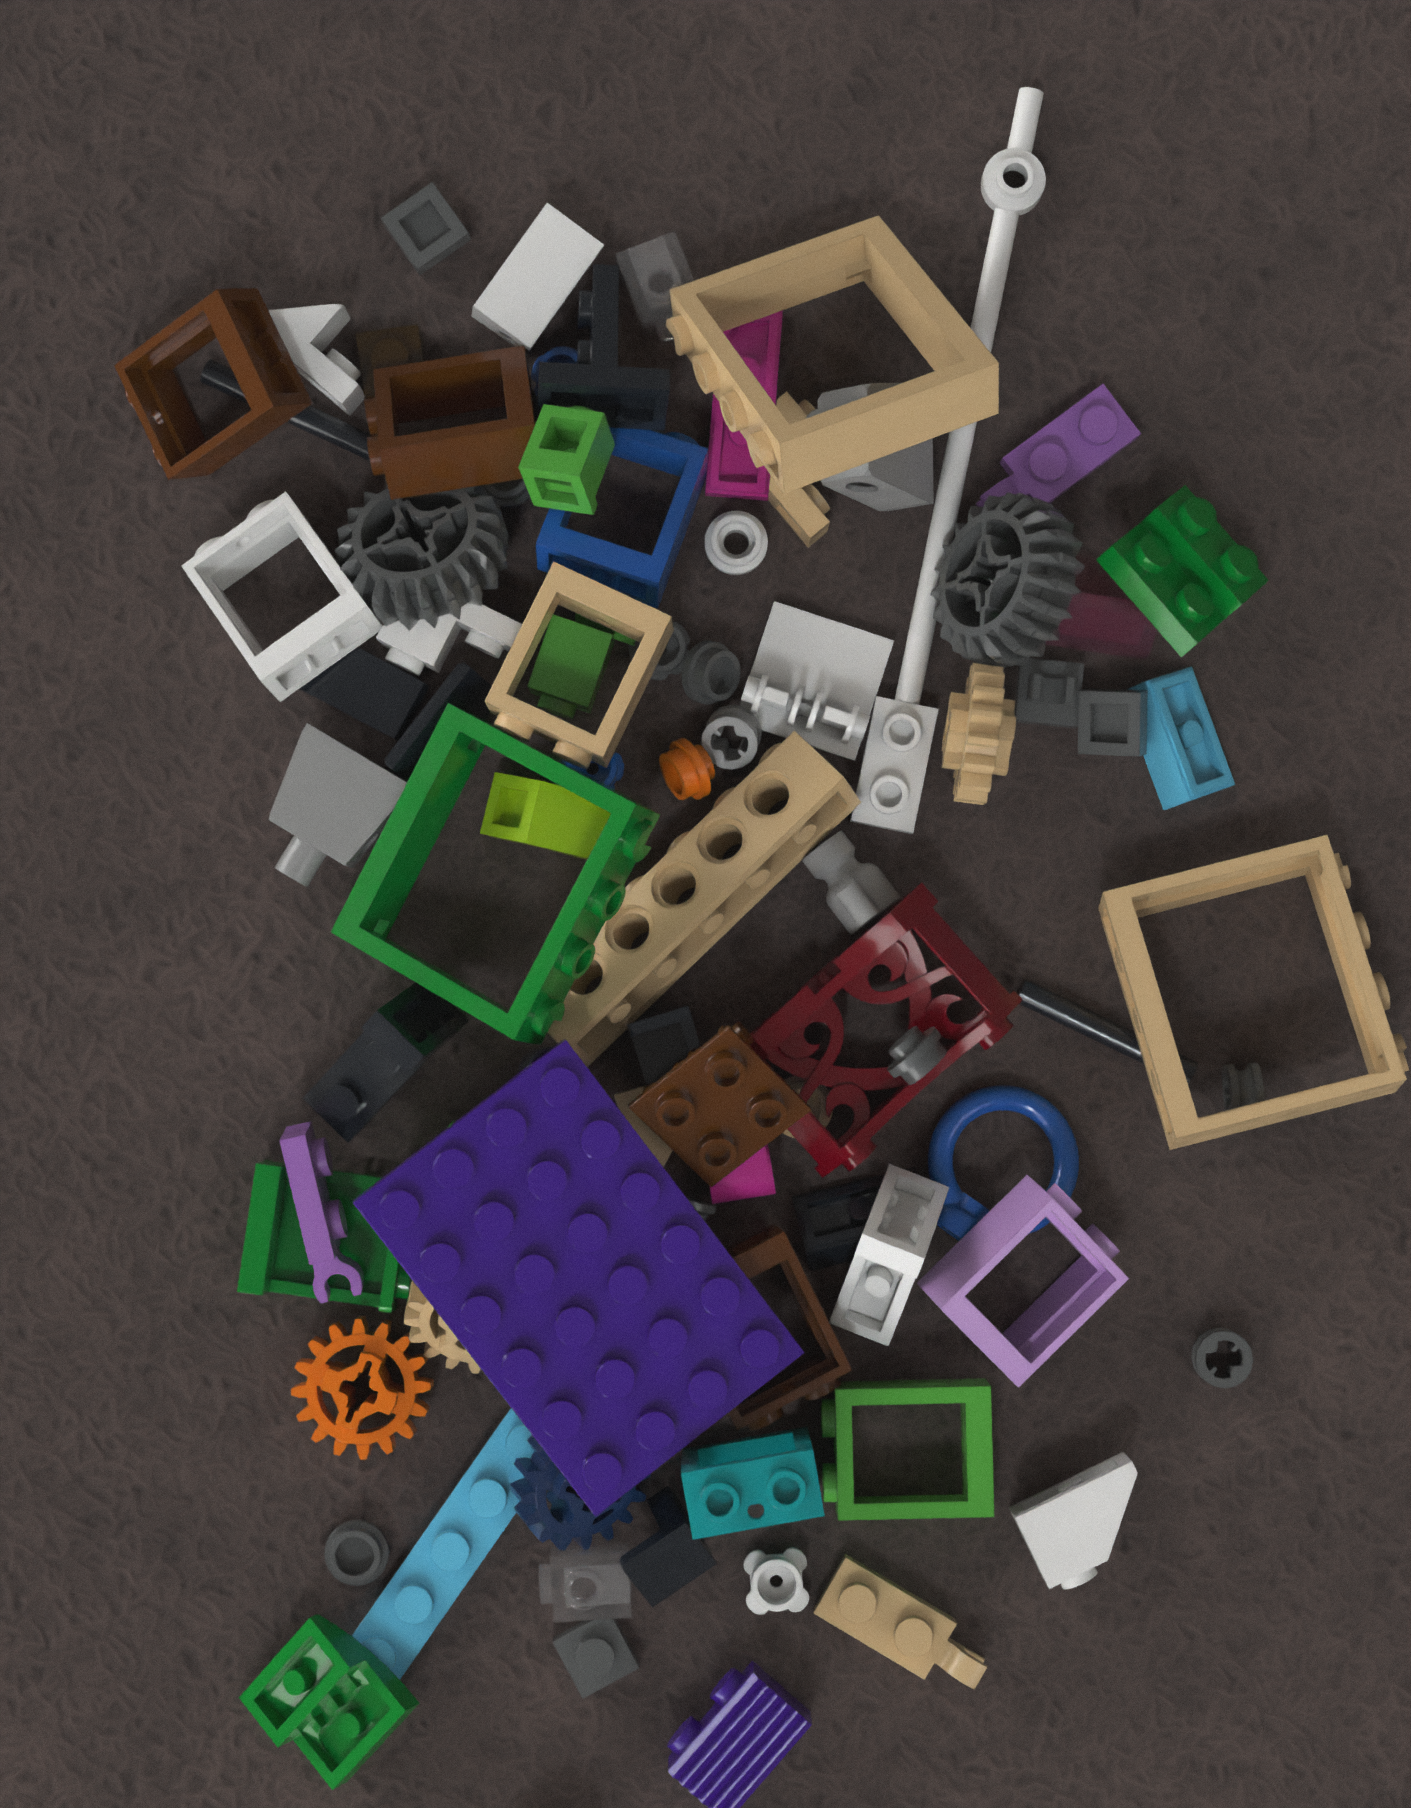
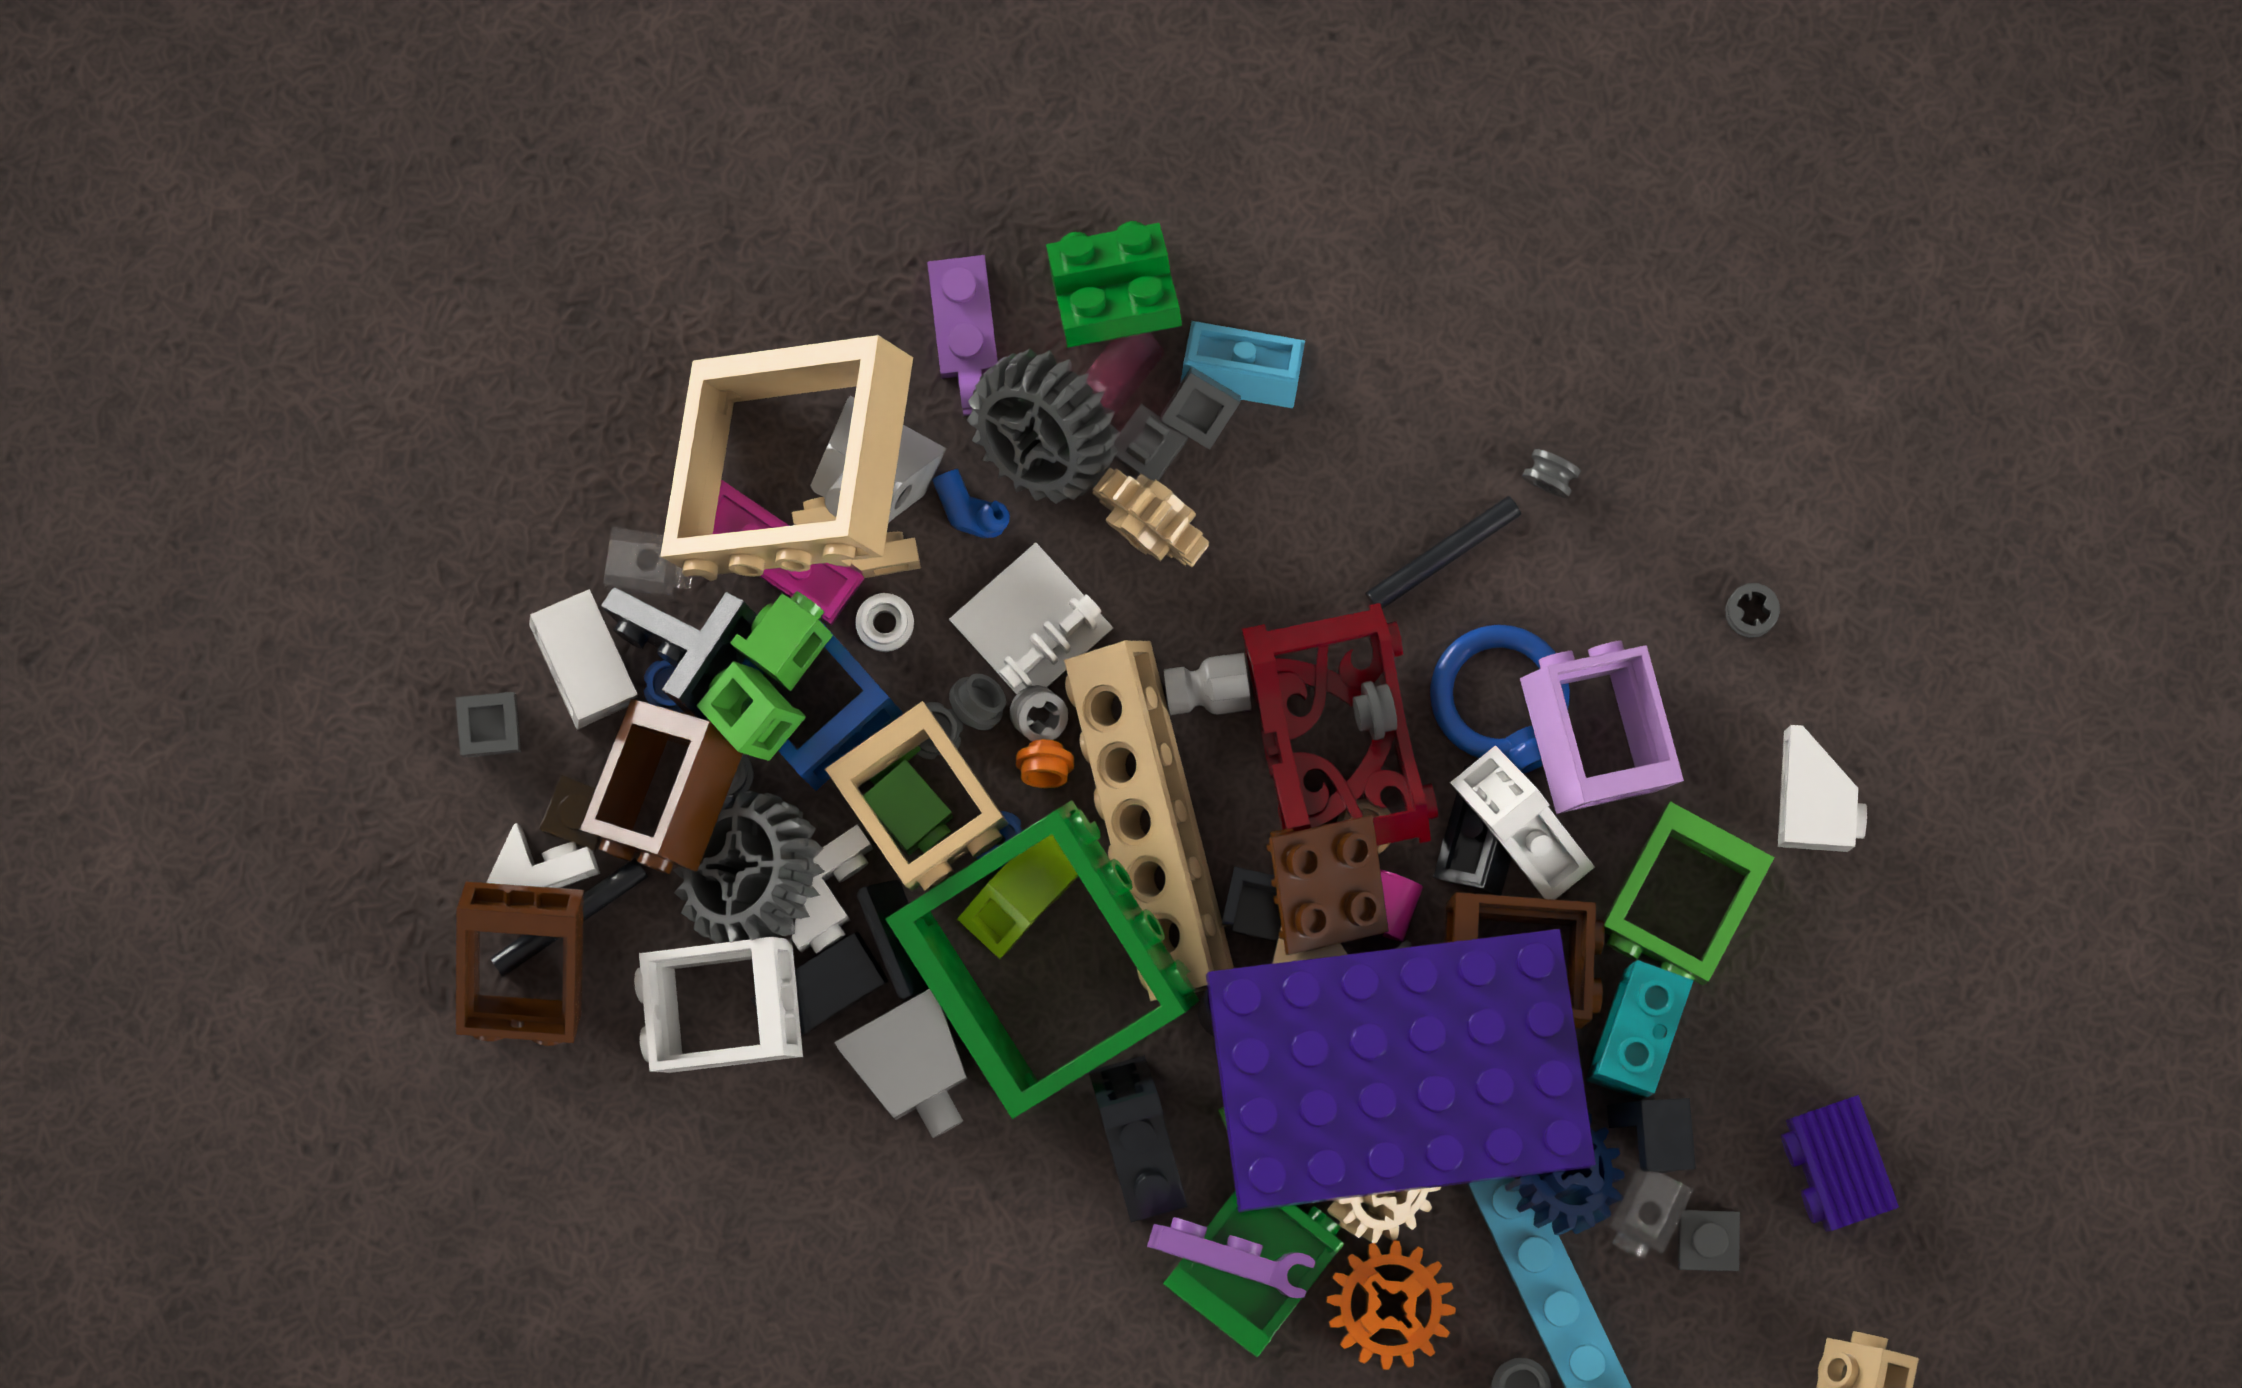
camera: 60 degrees left, 5 degrees down
(657, 452) = (785, 638): none -> bright green brick
(767, 1597) = (1748, 1059): white plate -> none
(885, 561) = (967, 512): none -> blue arm
(896, 1623) = (1817, 988): tan plate -> none
(901, 728) = (1108, 577): white bar -> none
(1346, 939) = (1475, 324): tan window -> none

